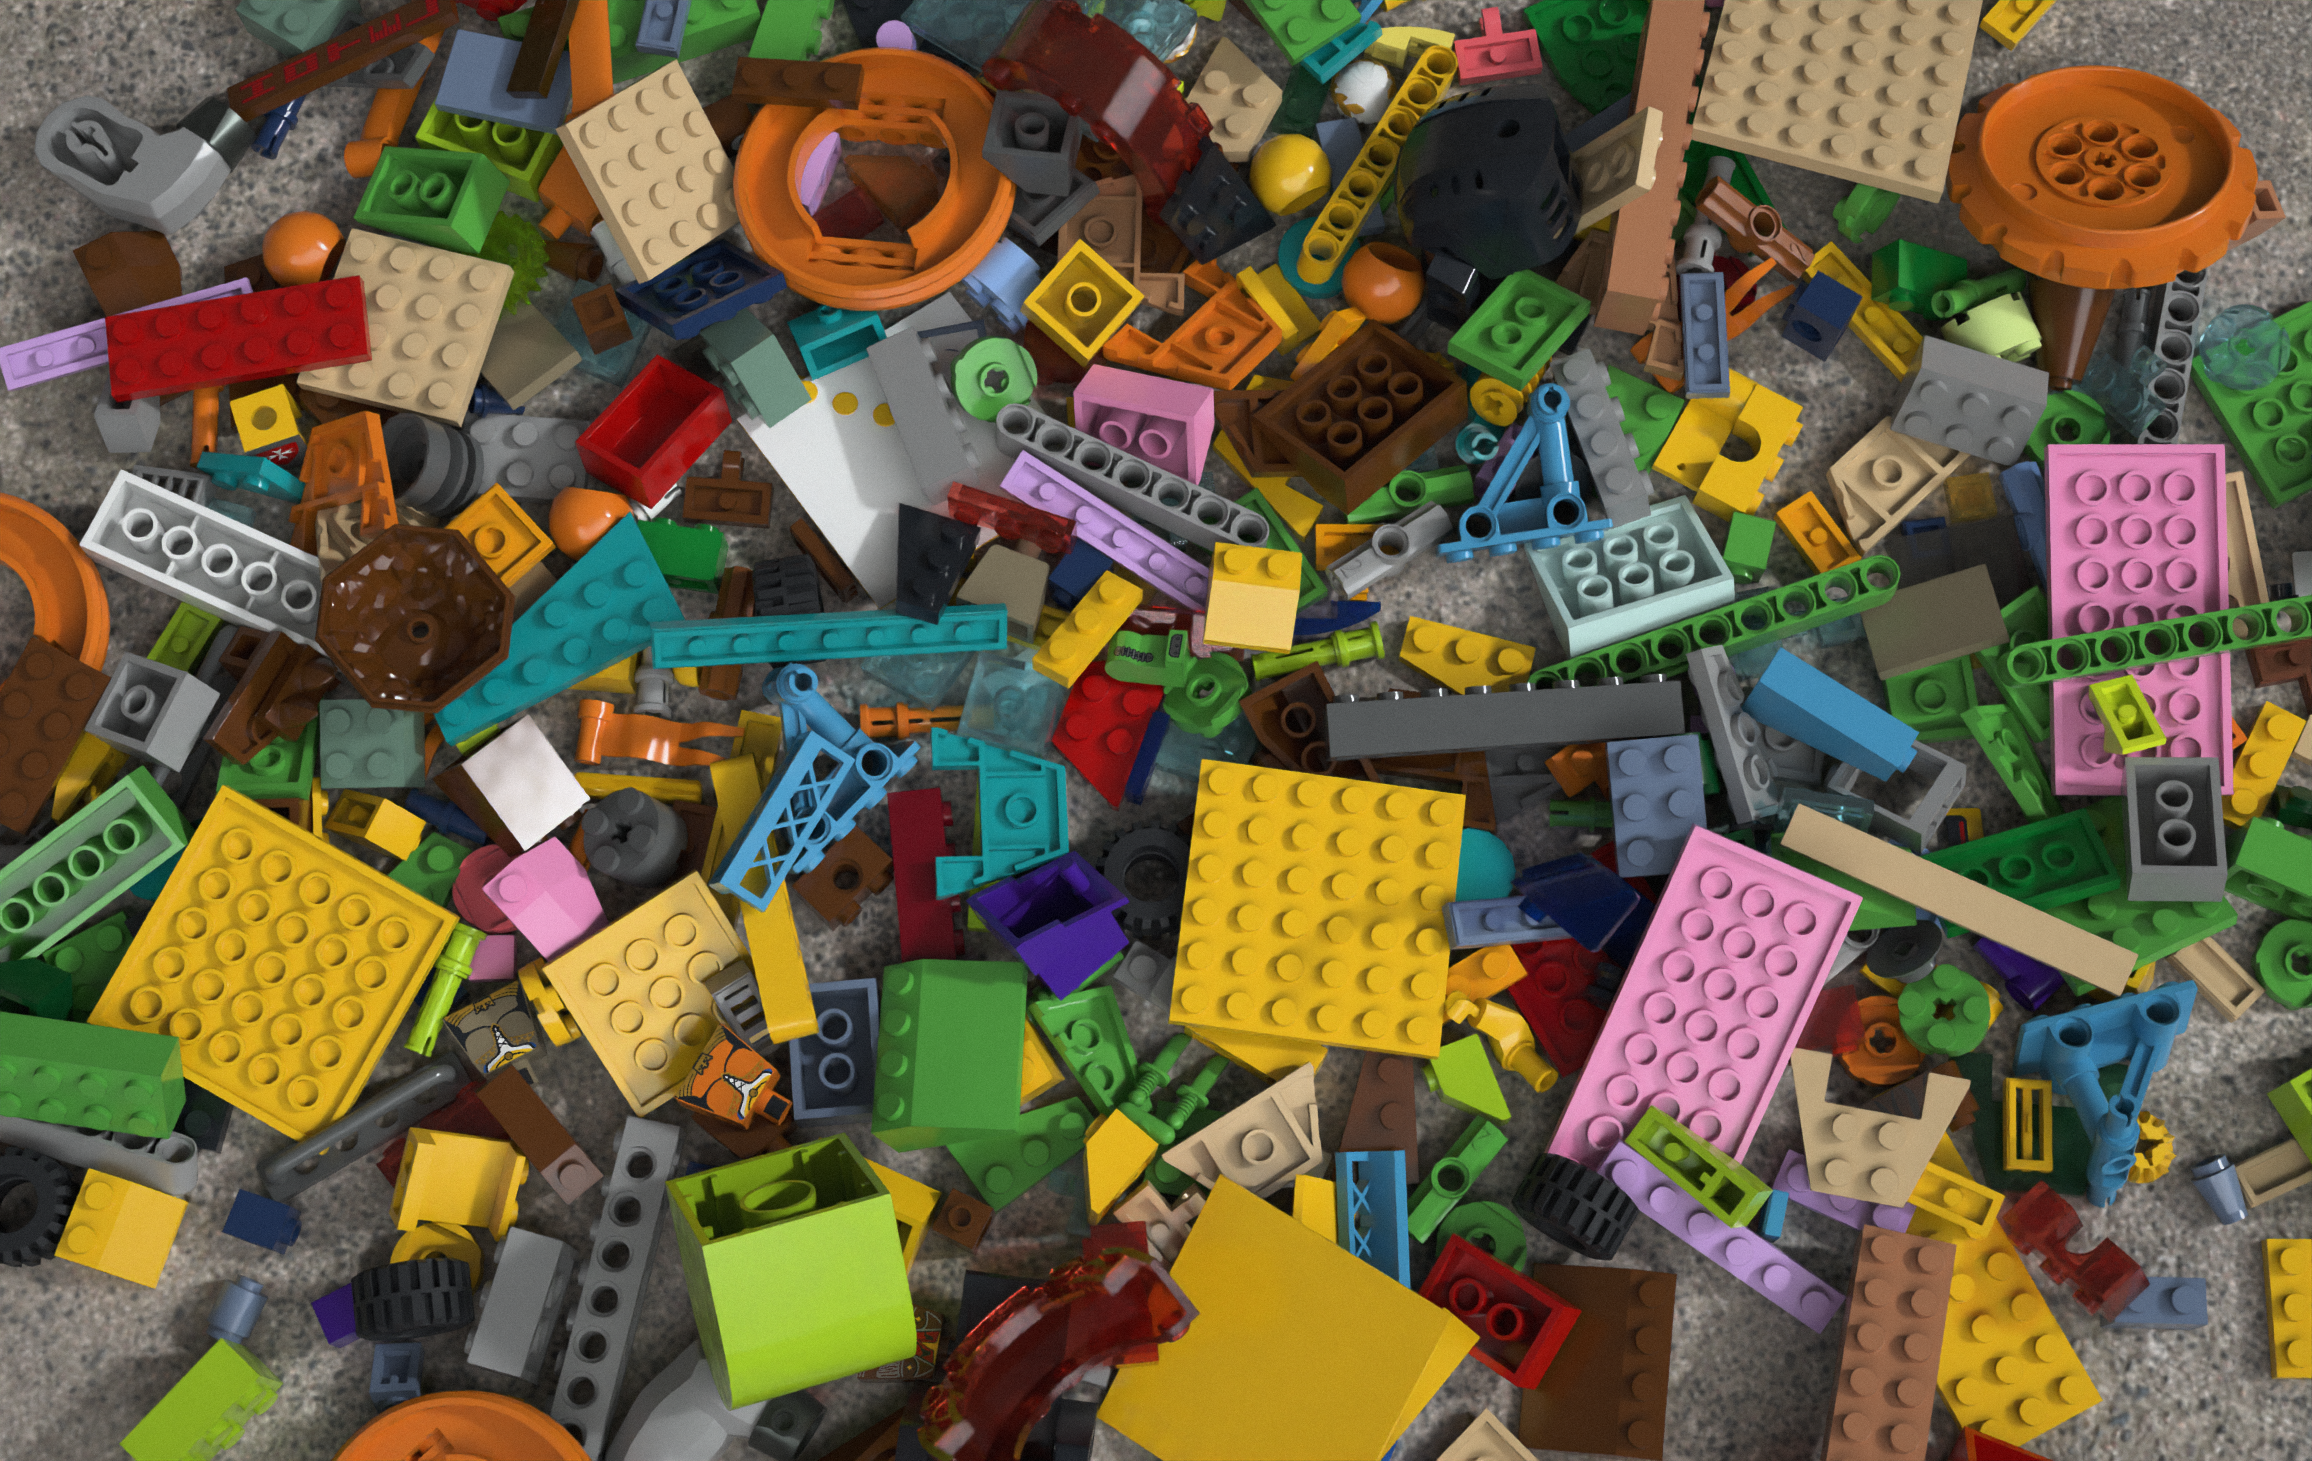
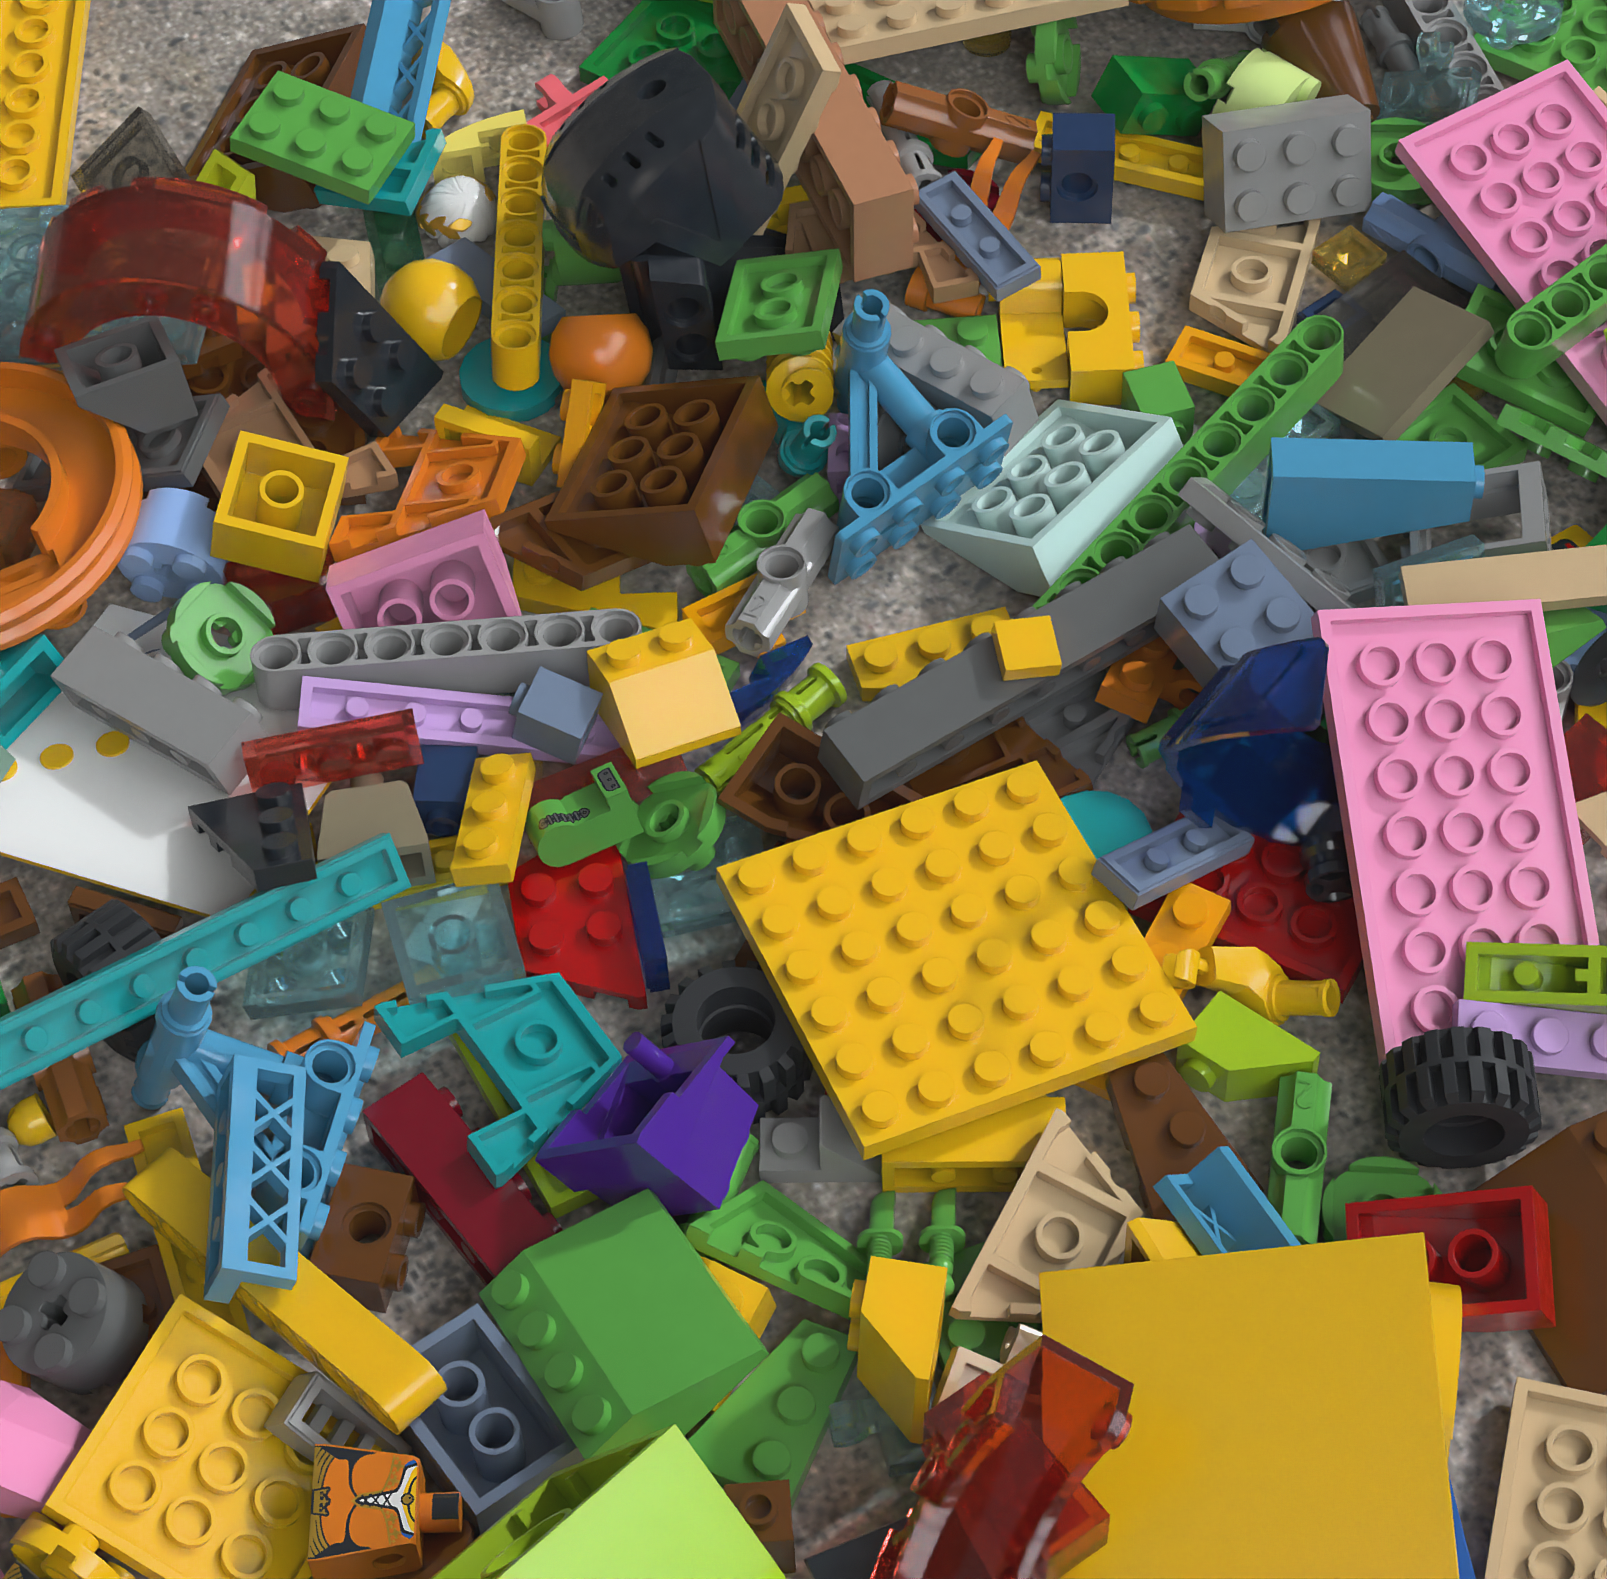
camera: 30 degrees left, 20 degrees down
(1173, 570) = (555, 714): none -> sand blue brick
(1500, 719) = (1026, 648): none -> yellow tile

